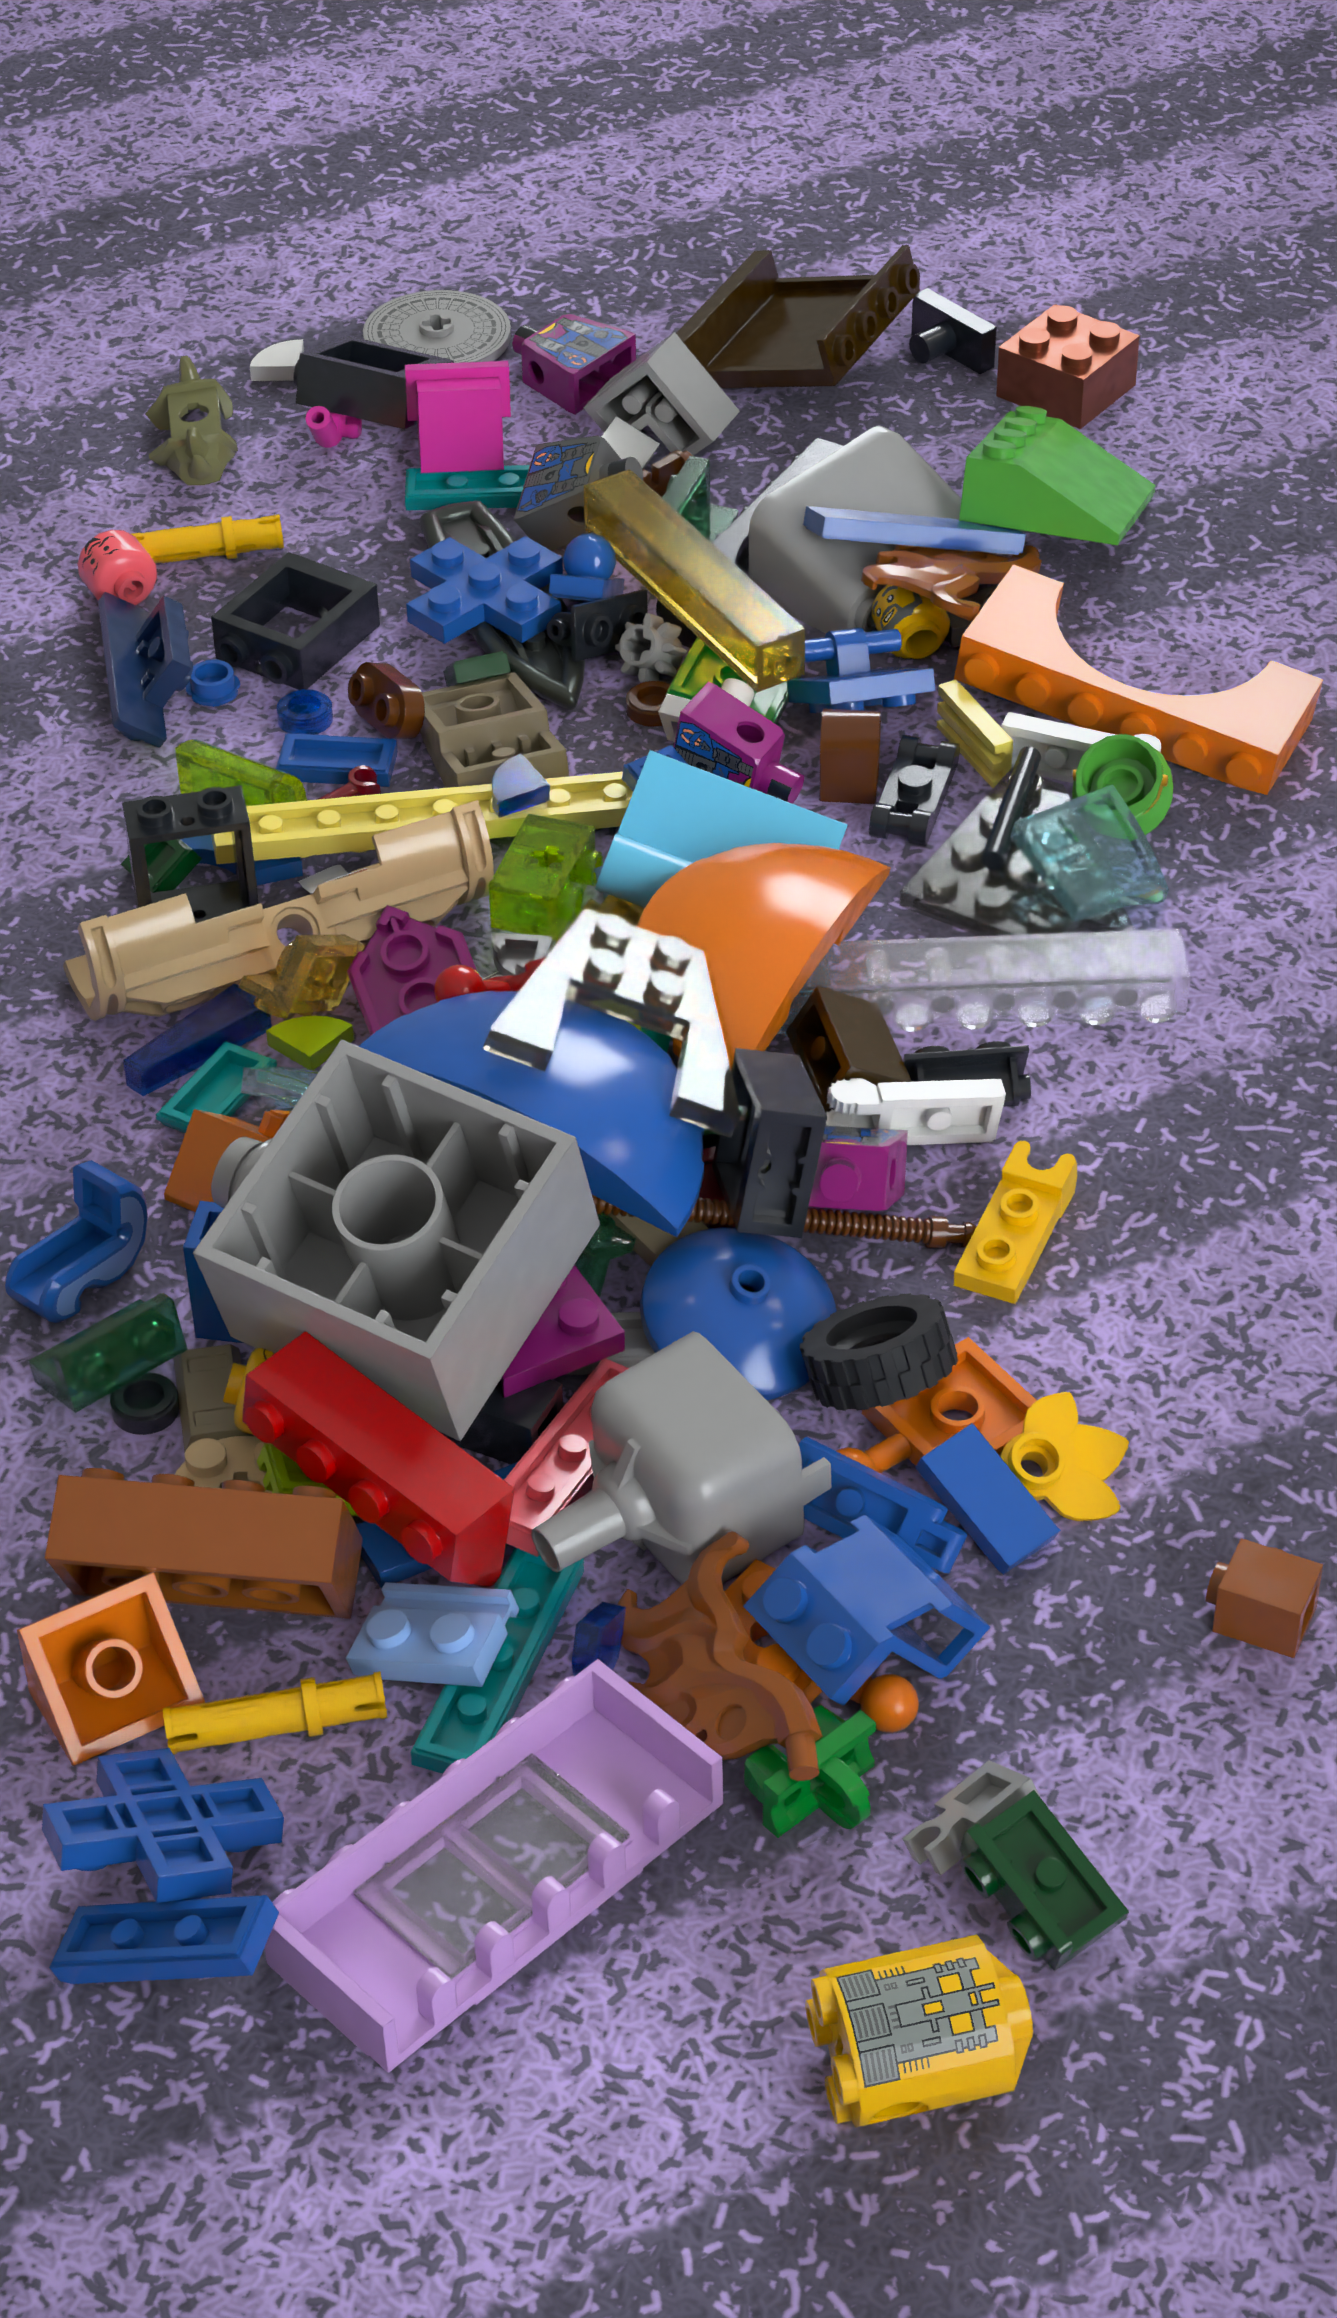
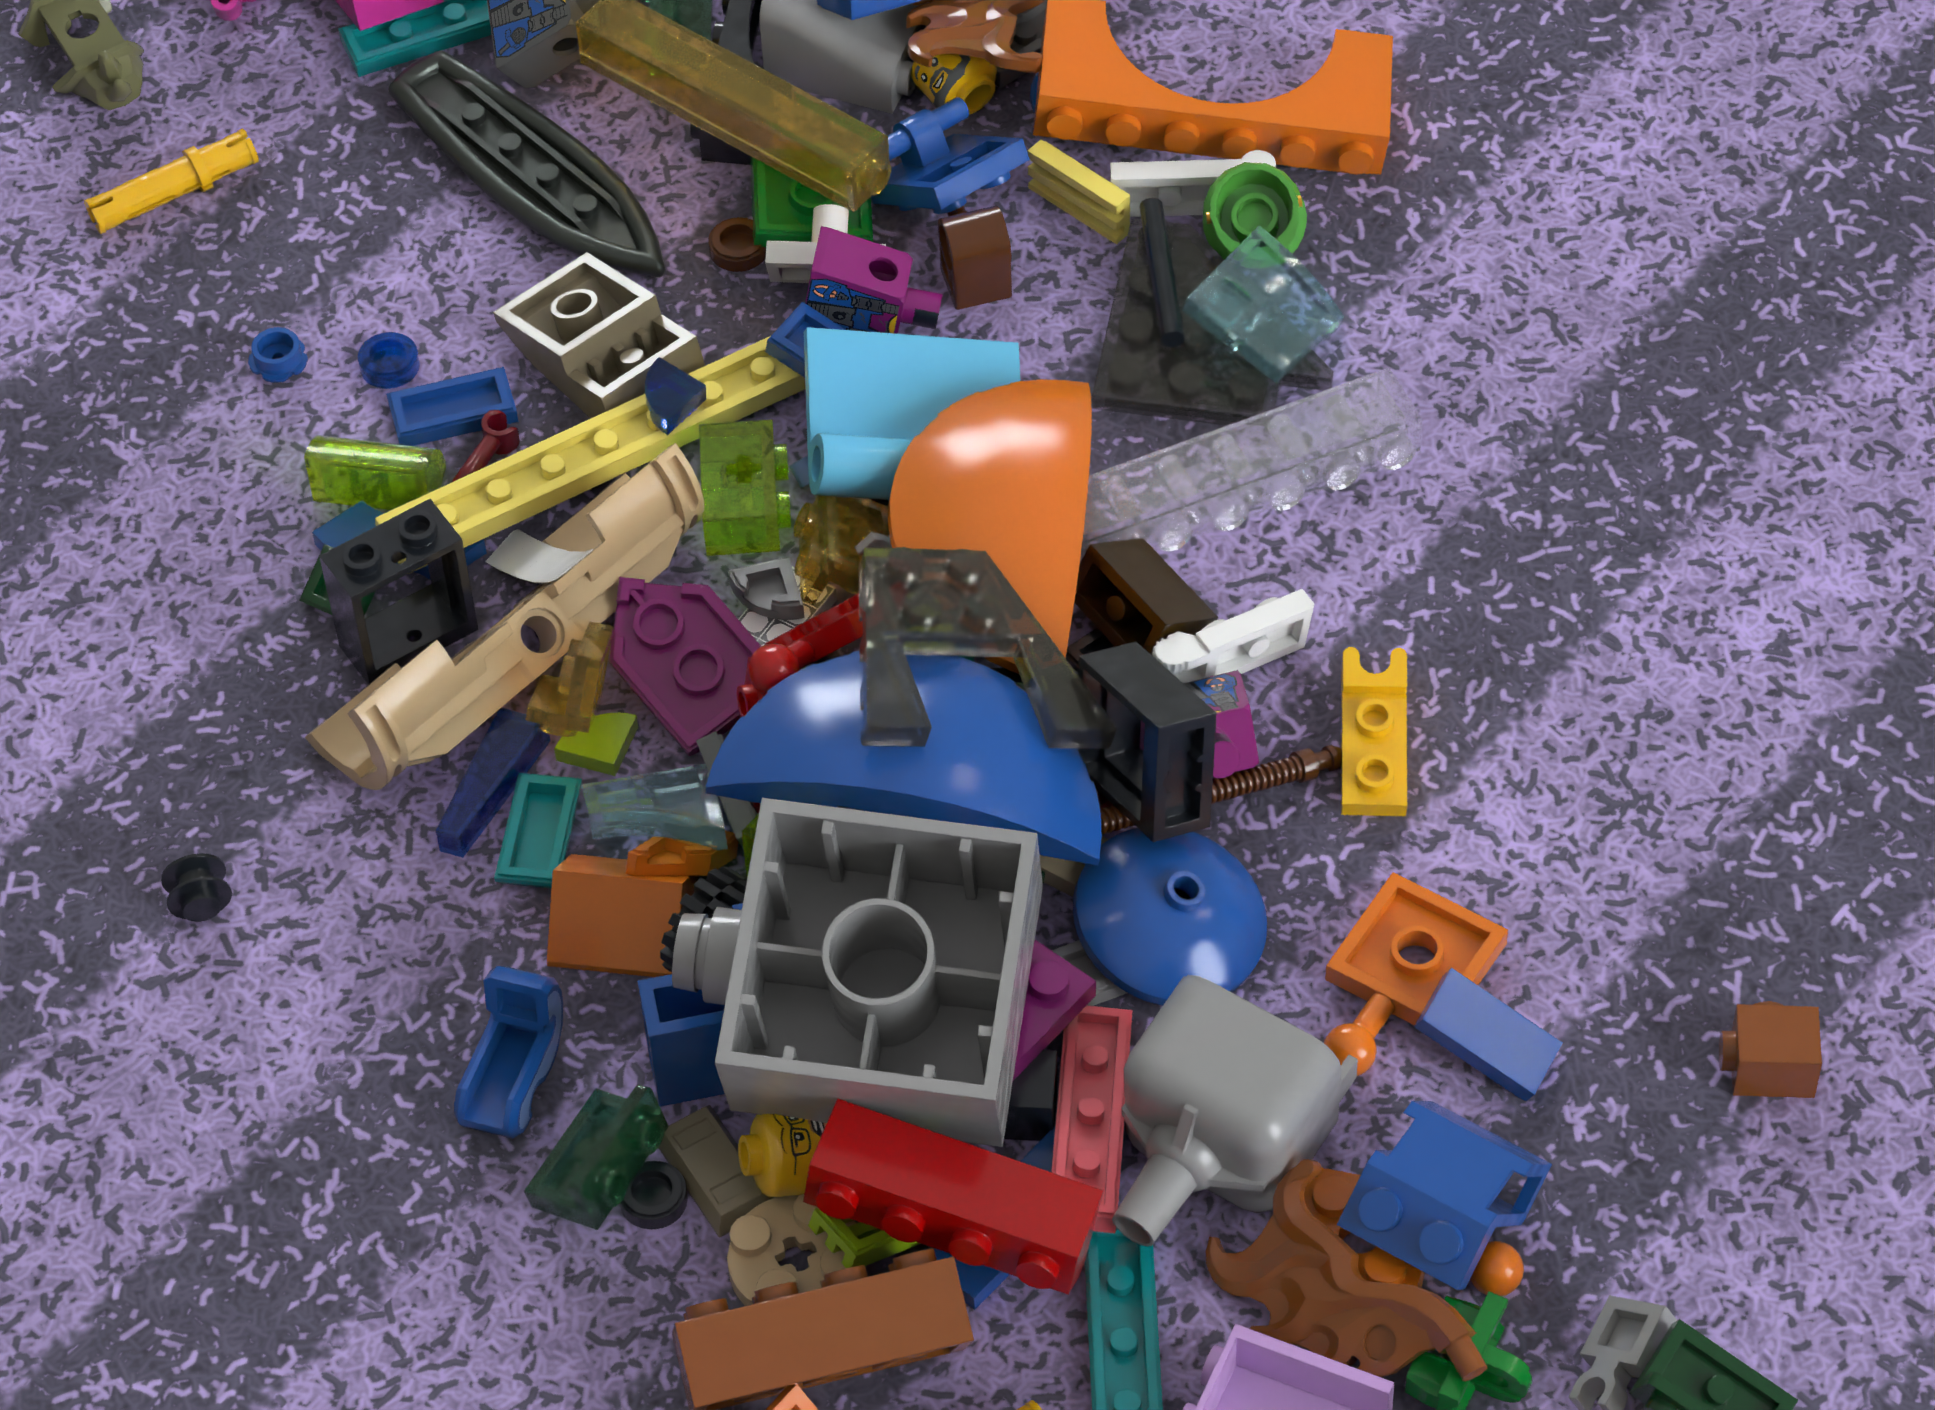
camera: 20 degrees left, 10 degrees up
(117, 565) = (105, 246): coral head -> none
(144, 663) = (199, 351): dark blue bracket -> none
(341, 601) = (330, 212): black window -> none
(387, 700) = (477, 326): reddish brown plate -> none
(433, 1634) = (1057, 1344): light blue plate -> none
(476, 668) = (545, 260): dark green tile -> none
(481, 589) = (510, 163): blue plate -> none
(588, 568) = (609, 115): blue tile -> none
(597, 625) = (650, 172): black hinge -> none
(598, 1637) = (1212, 1300): clear blue tile -> none
(651, 648) = (695, 187): light grey gear -> none
(879, 1352) = (1340, 947): black tyre -> none
(898, 1508) = (1397, 1075): blue hinge -> none
(914, 792) = (1047, 272): black plate -> none
(987, 1061) = (1273, 574): black hinge -> none
(1071, 1457) = (1538, 966): yellow plate -> none

